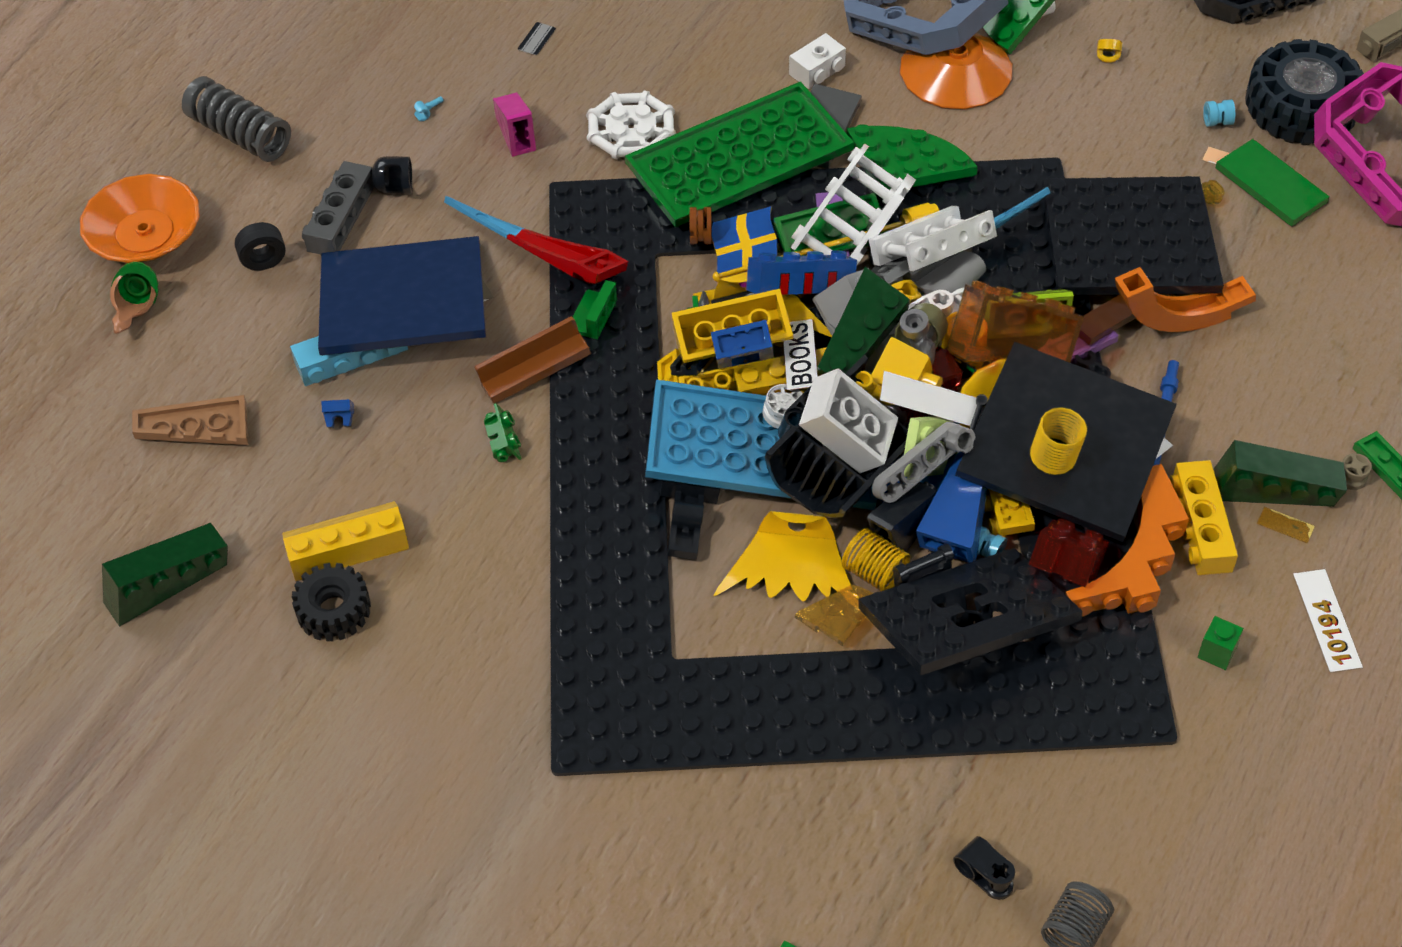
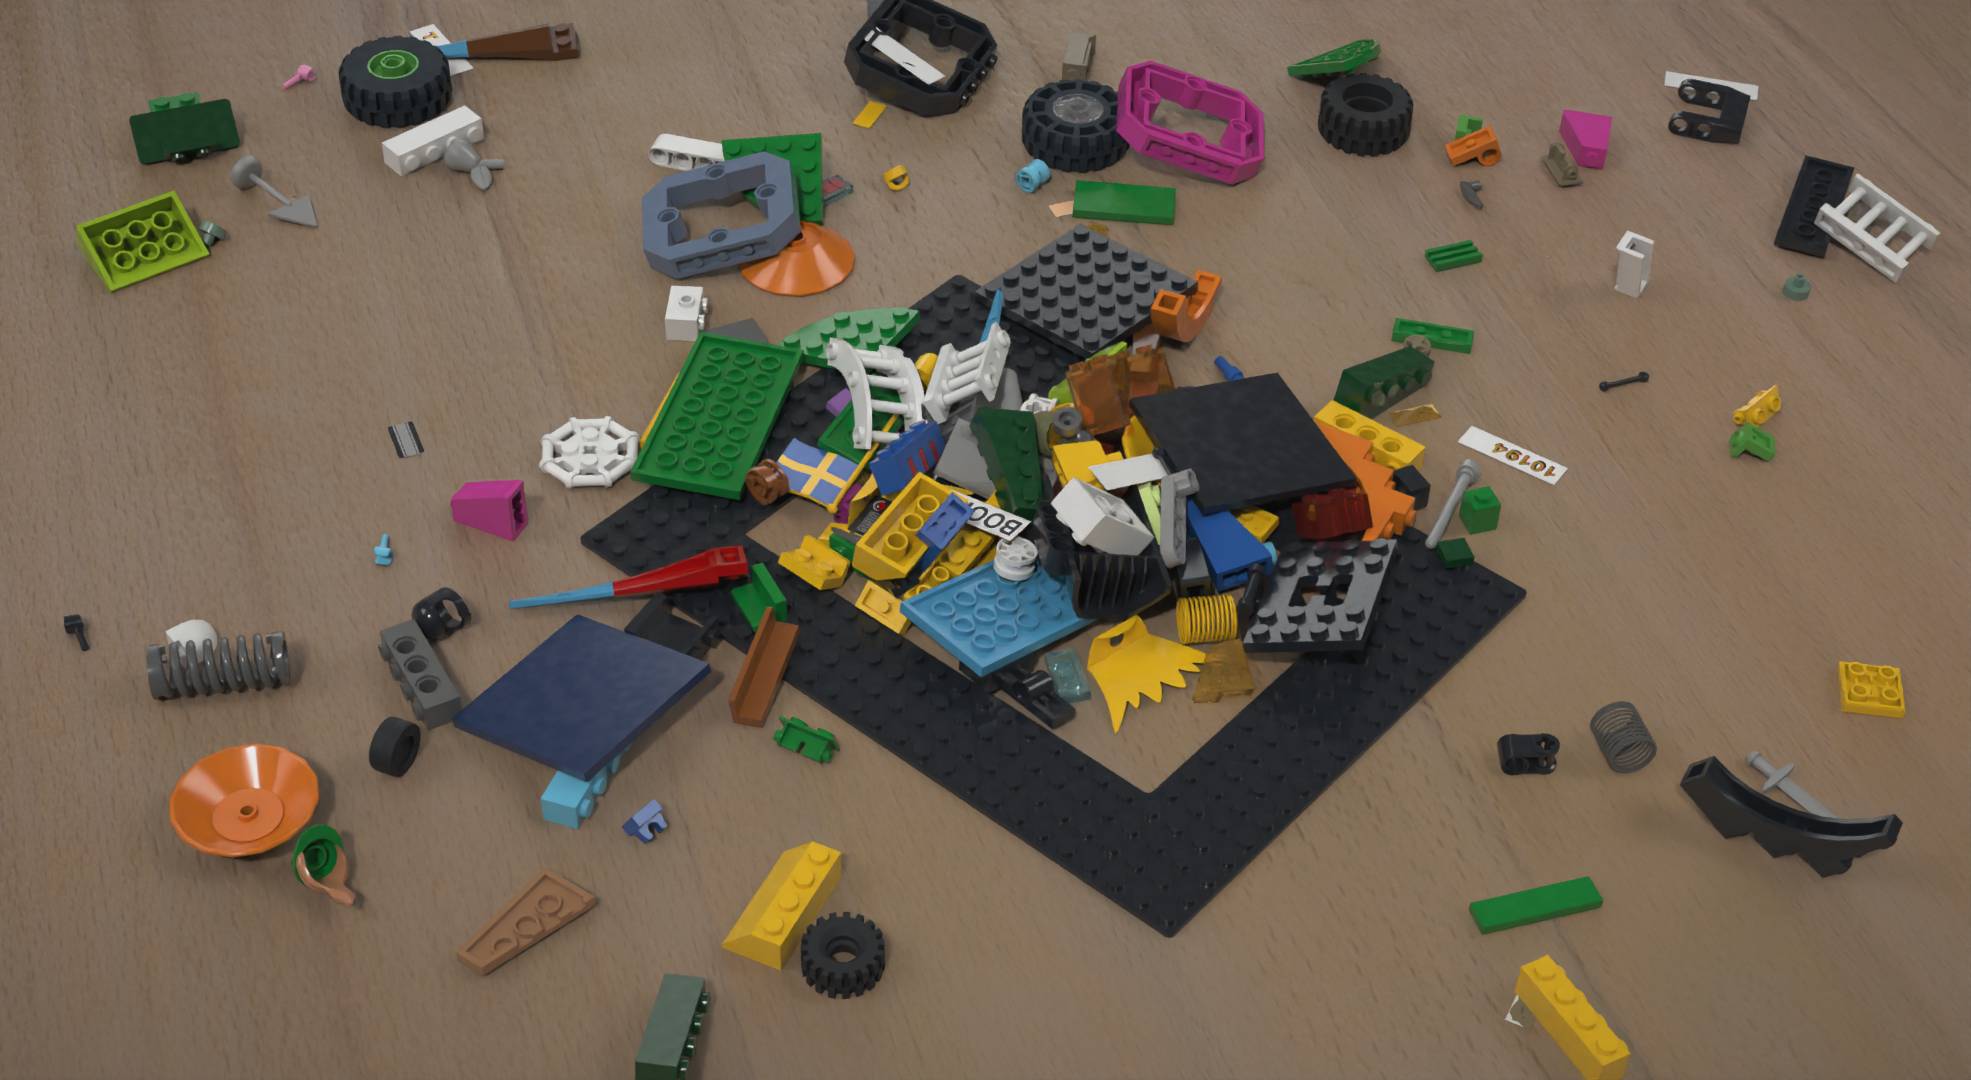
camera: 50 degrees left, 10 degrees down
(208, 38) = (74, 624): none -> black hand
(254, 89) = (192, 630): none -> white brick
(514, 293) = (673, 632): none -> black panel
(657, 311) = (816, 564): none -> yellow bracket
(728, 525) = (1067, 675): none -> clear light blue plate
(1048, 31) = (835, 189): none -> tile
(1072, 445) = (1252, 434): yellow piece -> none
(1149, 661) = (1455, 553): none -> dark green tile
(1185, 579) = (1412, 483): none -> black brick
(1256, 605) = (1467, 474): none -> light grey piece

